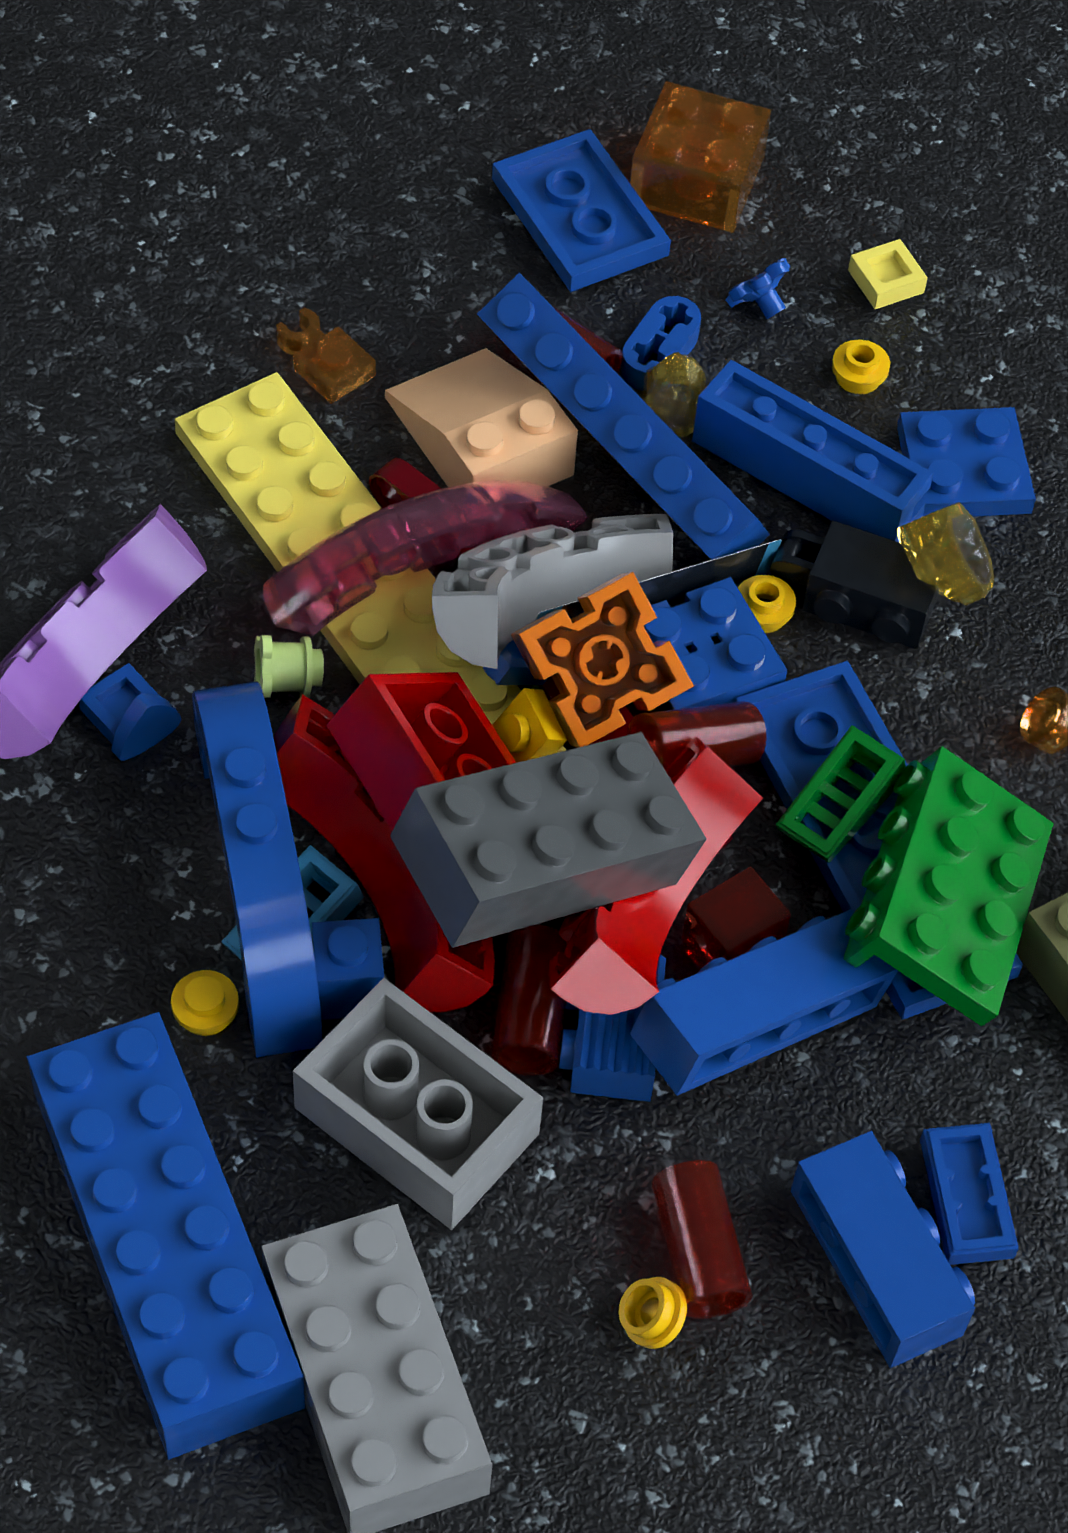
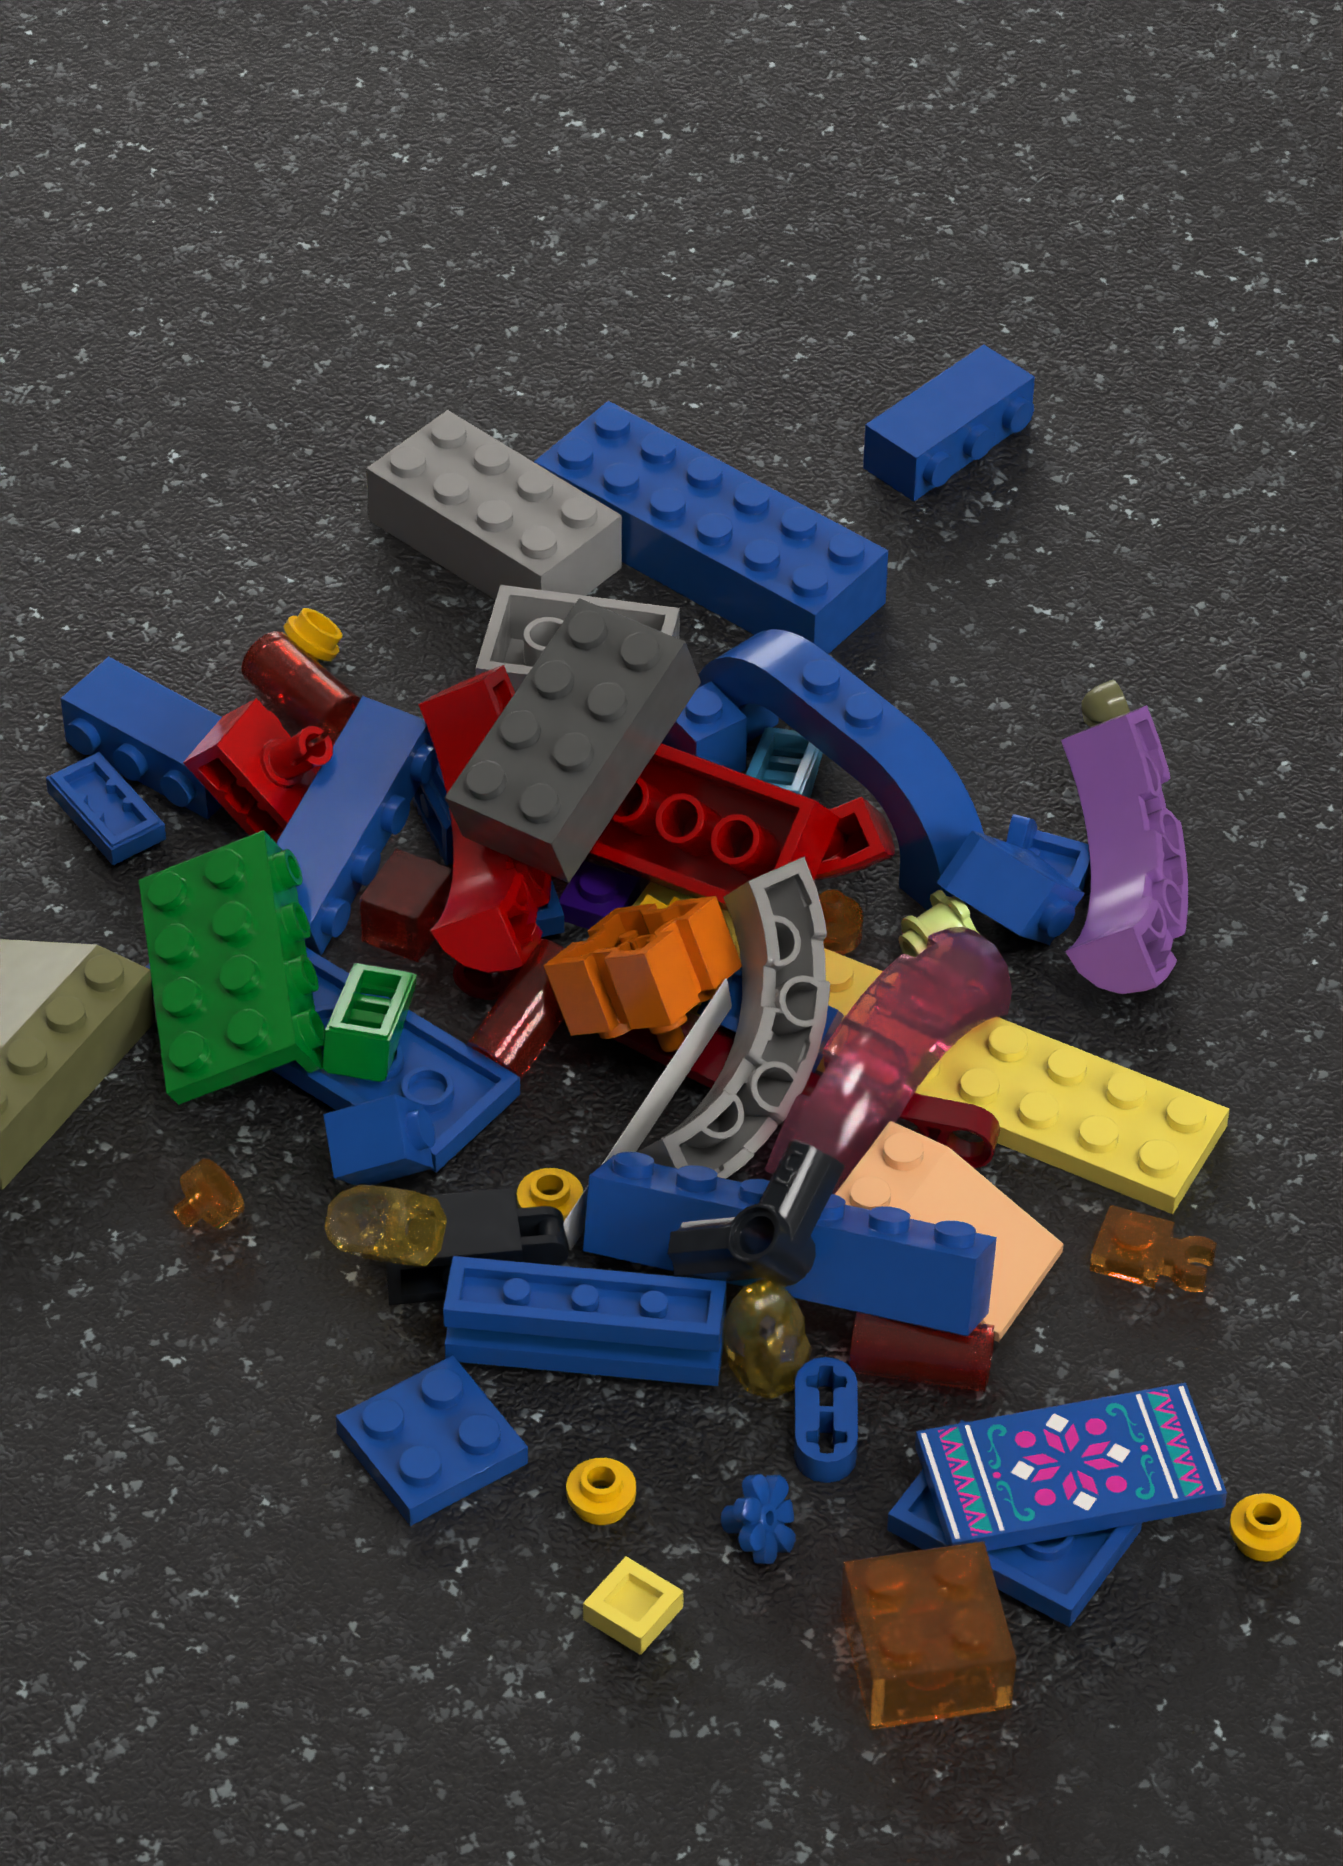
camera: 155 degrees right, 10 degrees down
(197, 651) = (1012, 887): none -> blue slope
(407, 140) = (1265, 1541): none -> yellow plate
(526, 197) = (1070, 1468): none -> blue tile
(663, 369) = (768, 1237): none -> black piece
(719, 671) = (536, 1129): blue piece -> none
(812, 1091) = (258, 767): none -> red brick
(894, 673) = (379, 1140): none -> blue brick

